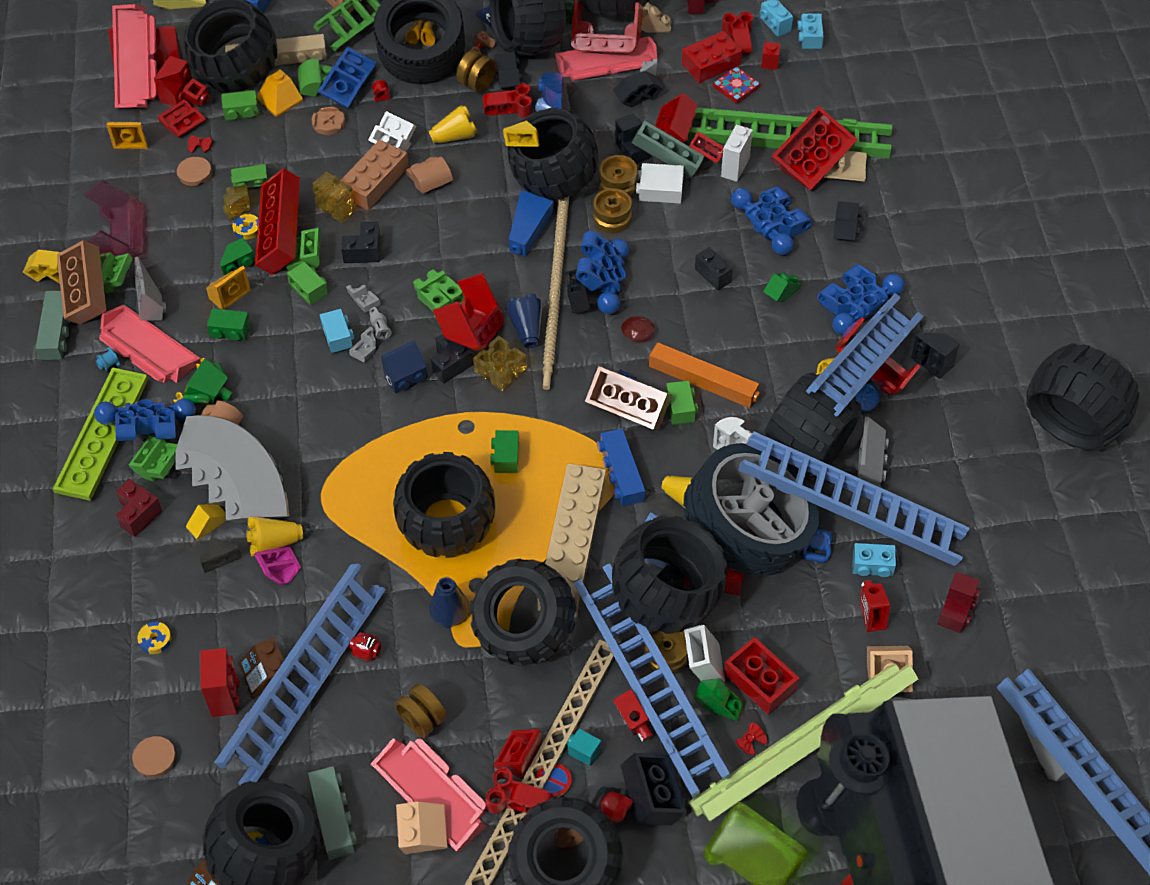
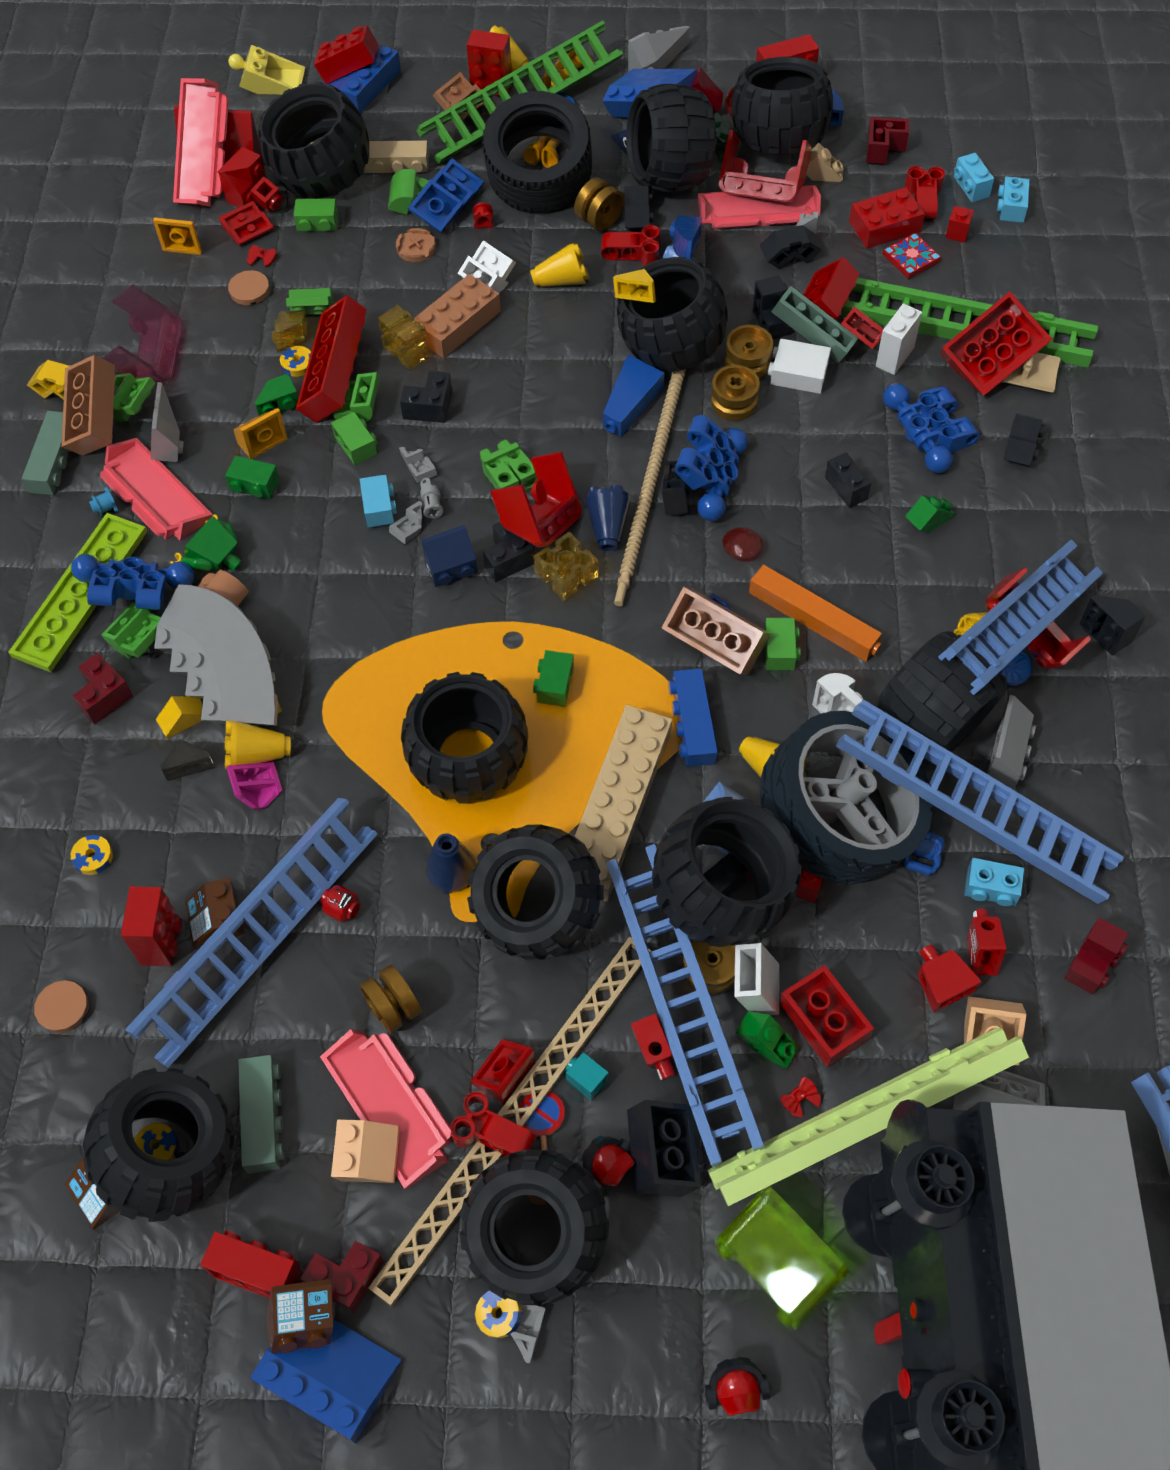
camera: 10 degrees right, 5 degrees up
(279, 94) = (363, 206): light orange slope -> none
(430, 174) = (523, 322): nougat brick -> none
(482, 39) = (614, 168): nougat piece -> none
(848, 635) = (945, 978): none -> red torso
(860, 298) = (1026, 539): blue connector -> none

